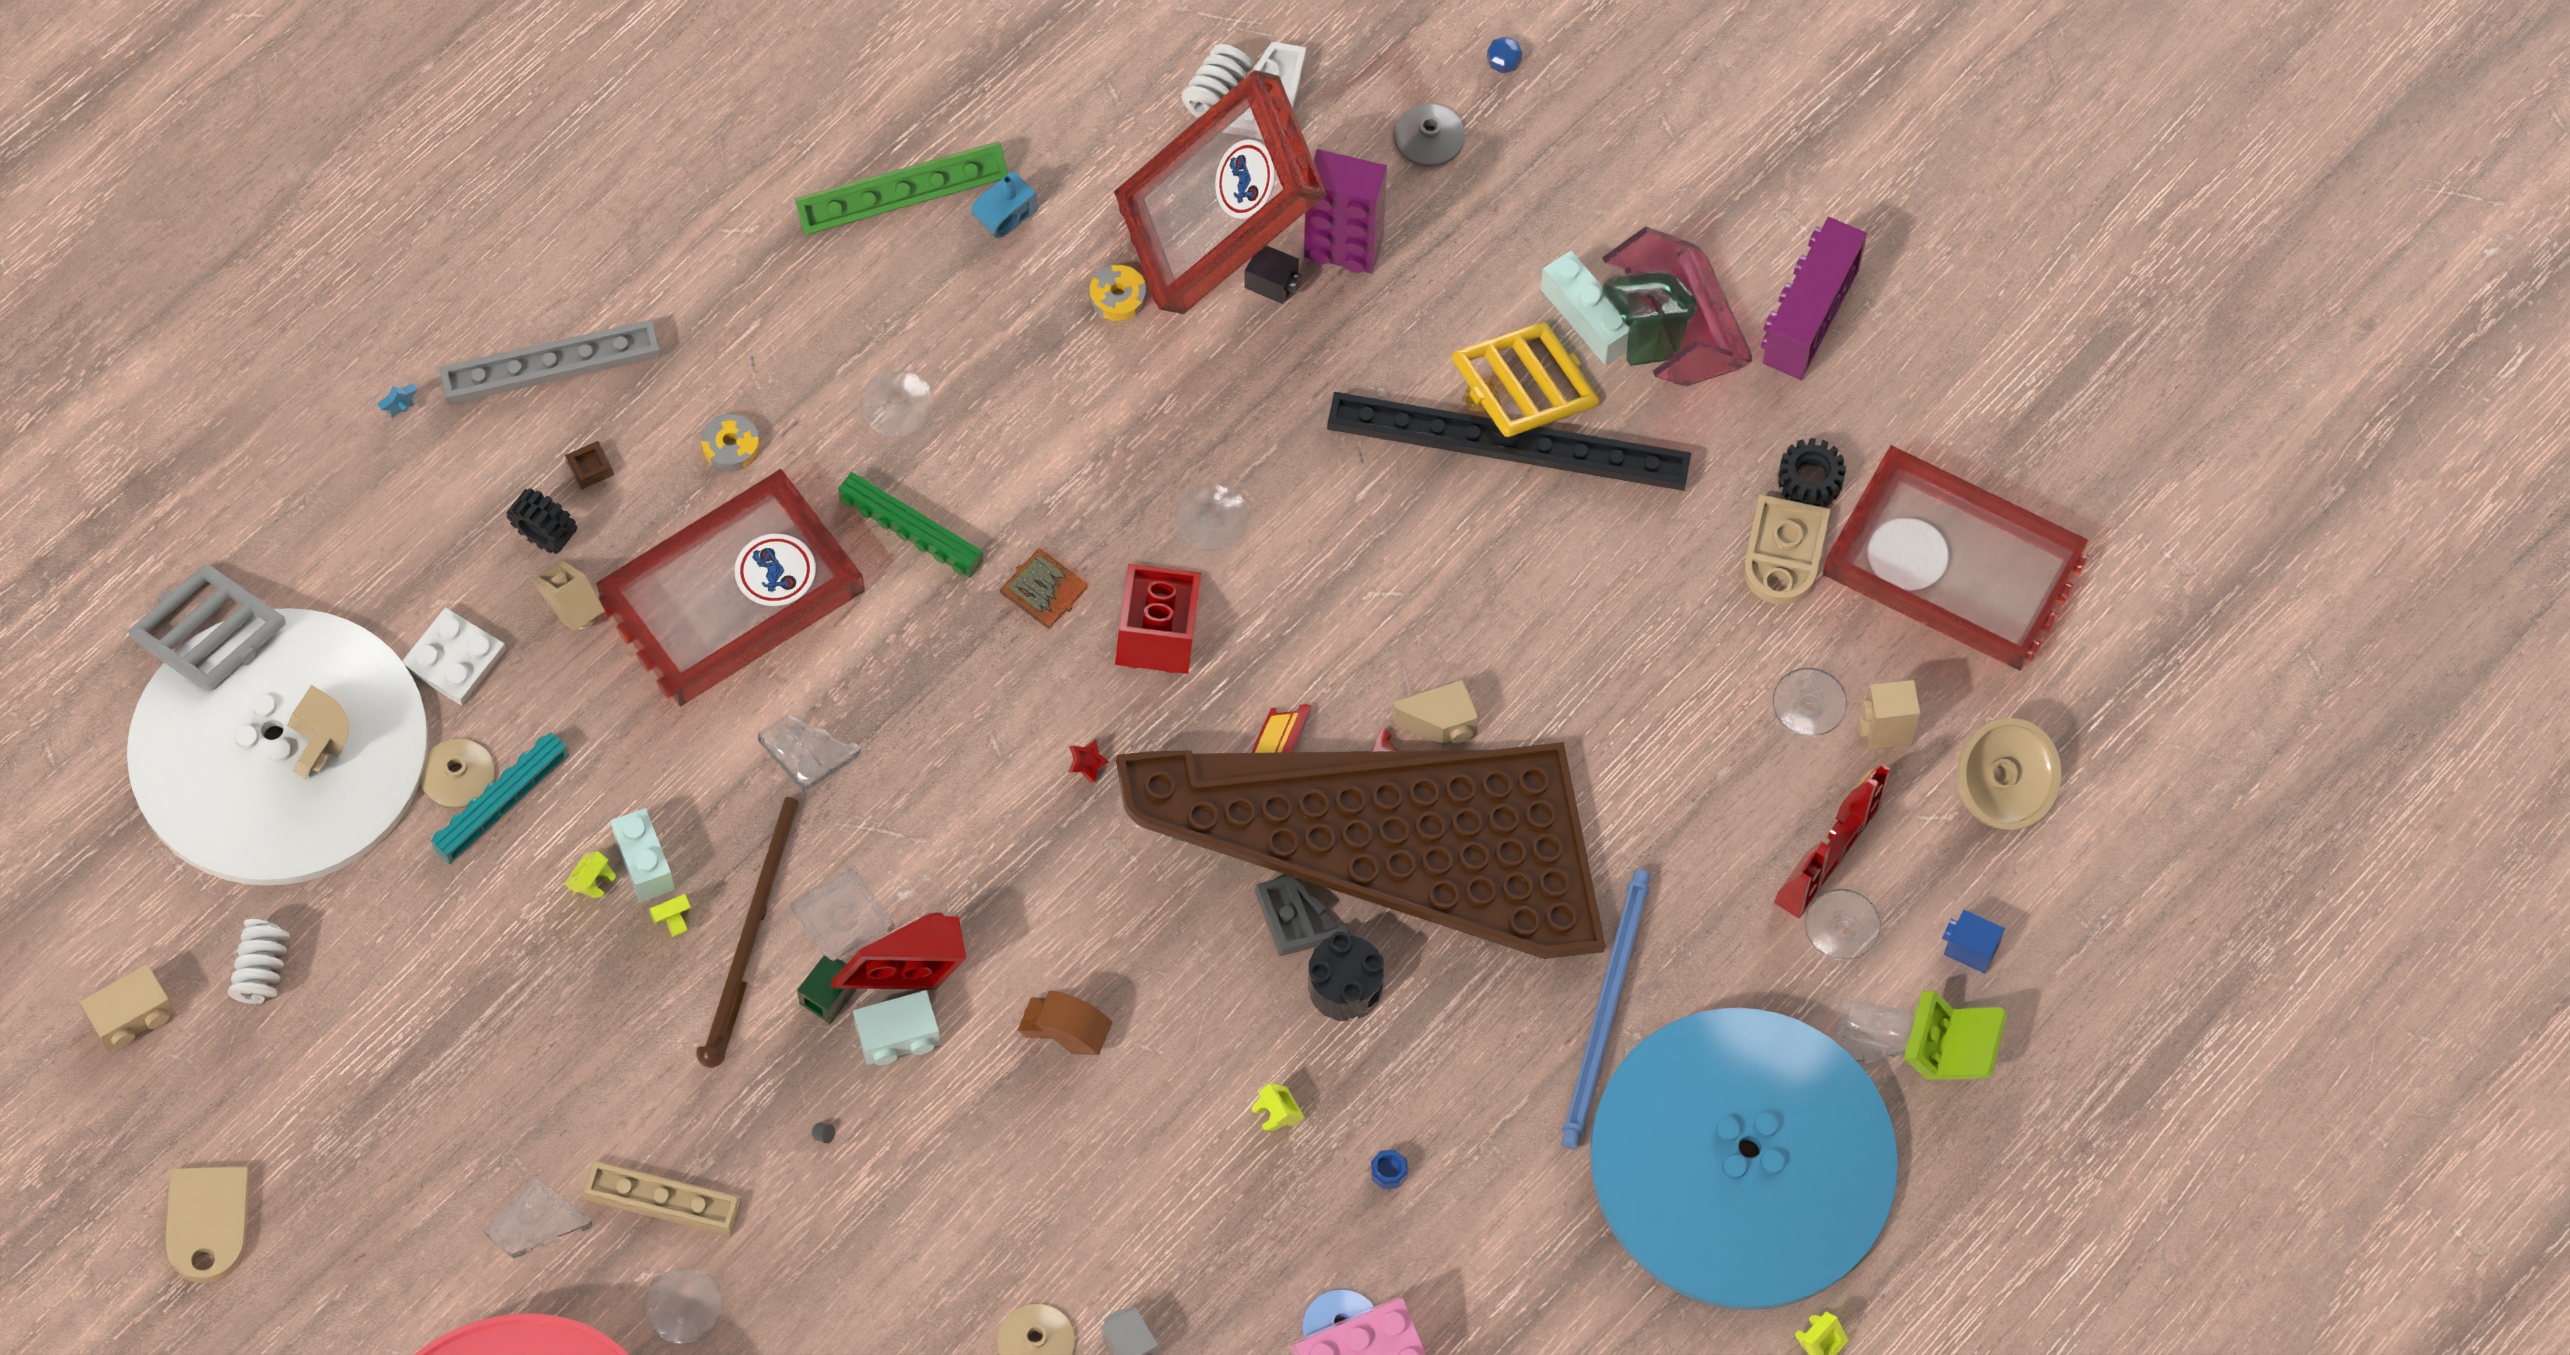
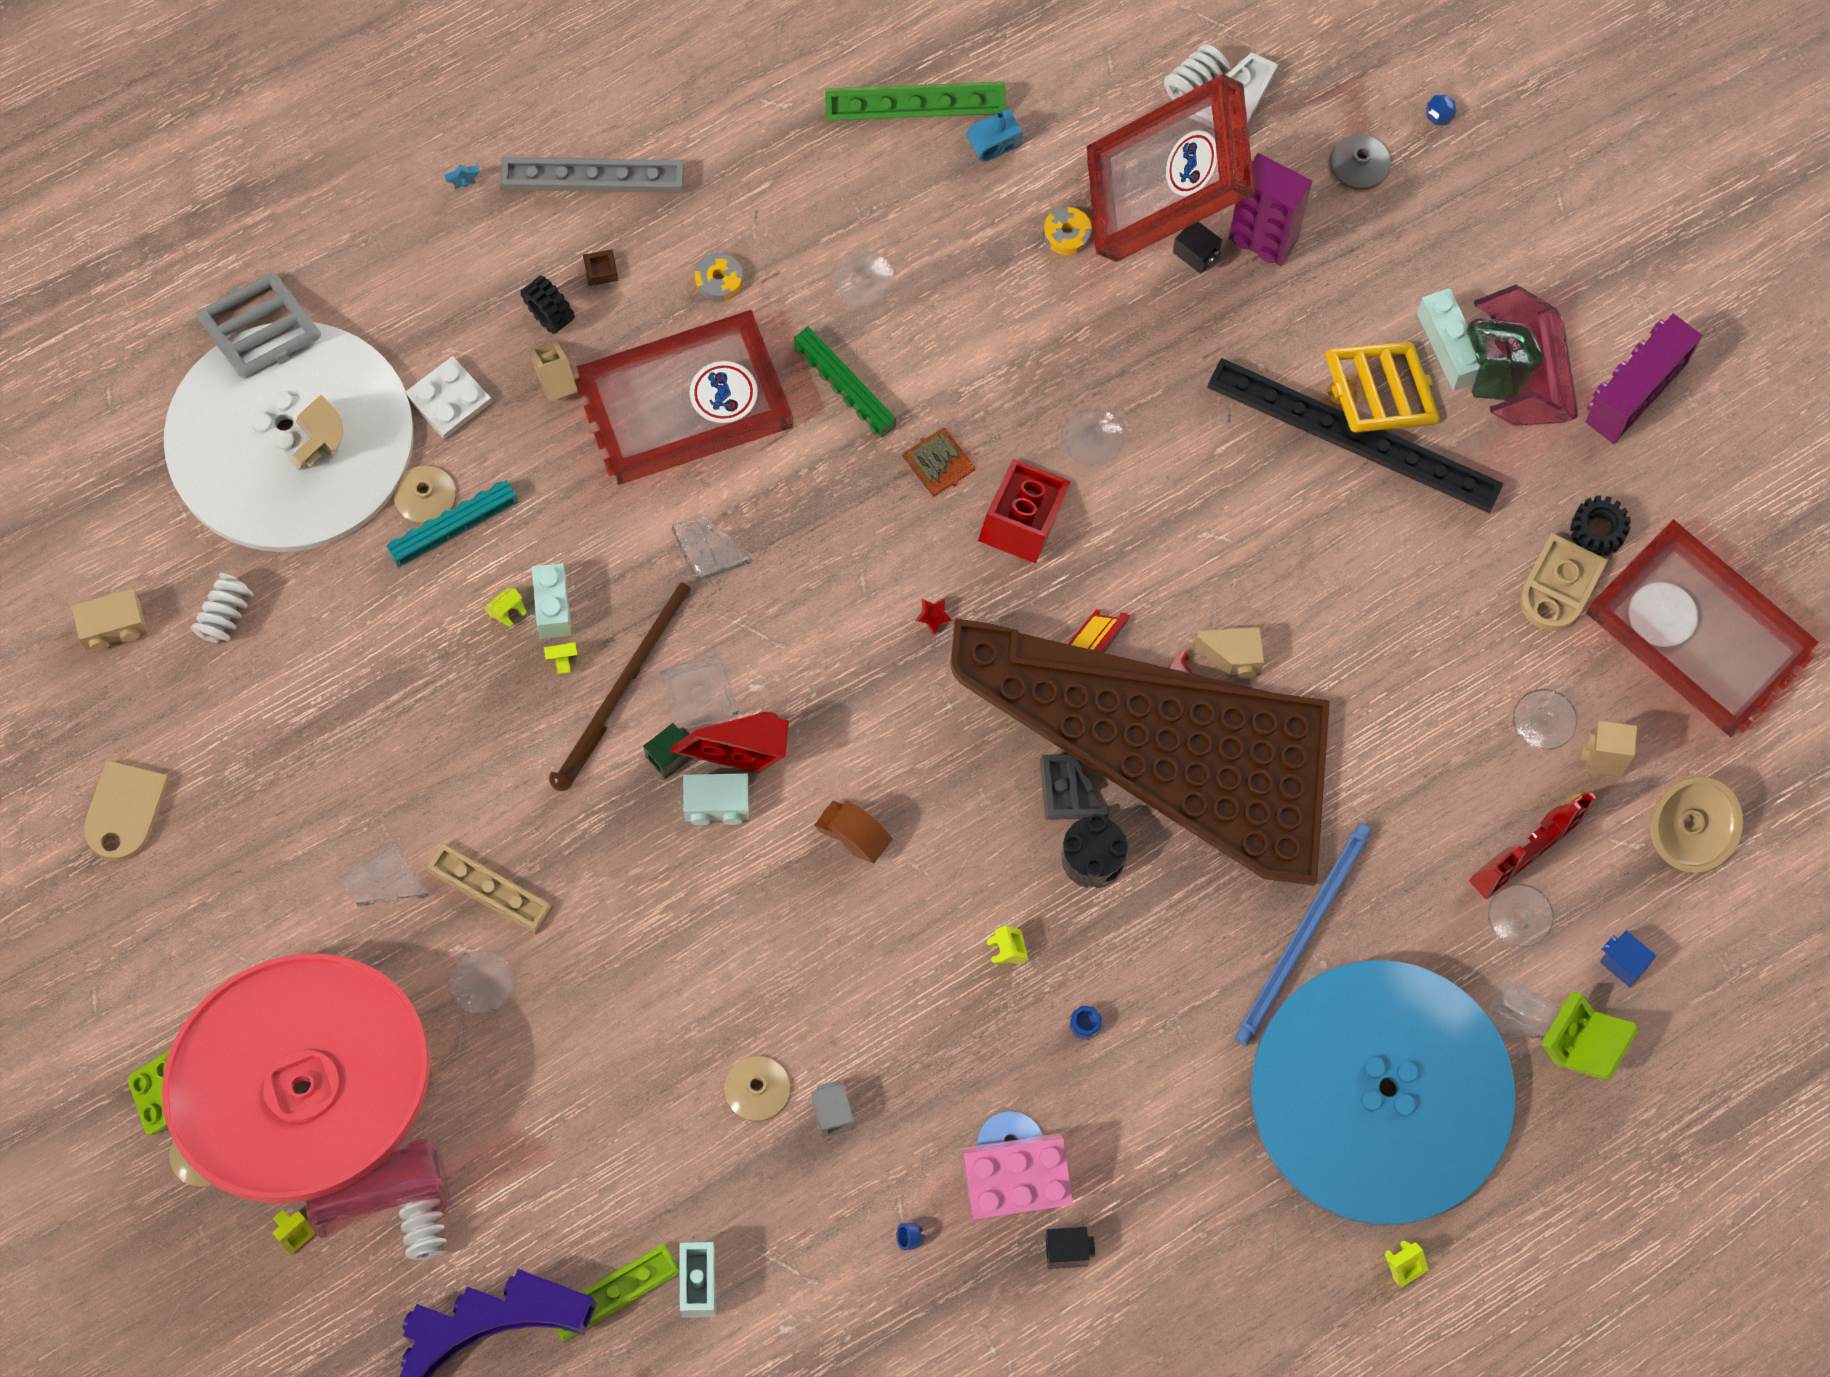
camera: 15 degrees right, 5 degrees up
(823, 1132) = (634, 868): dark grey piece -> none

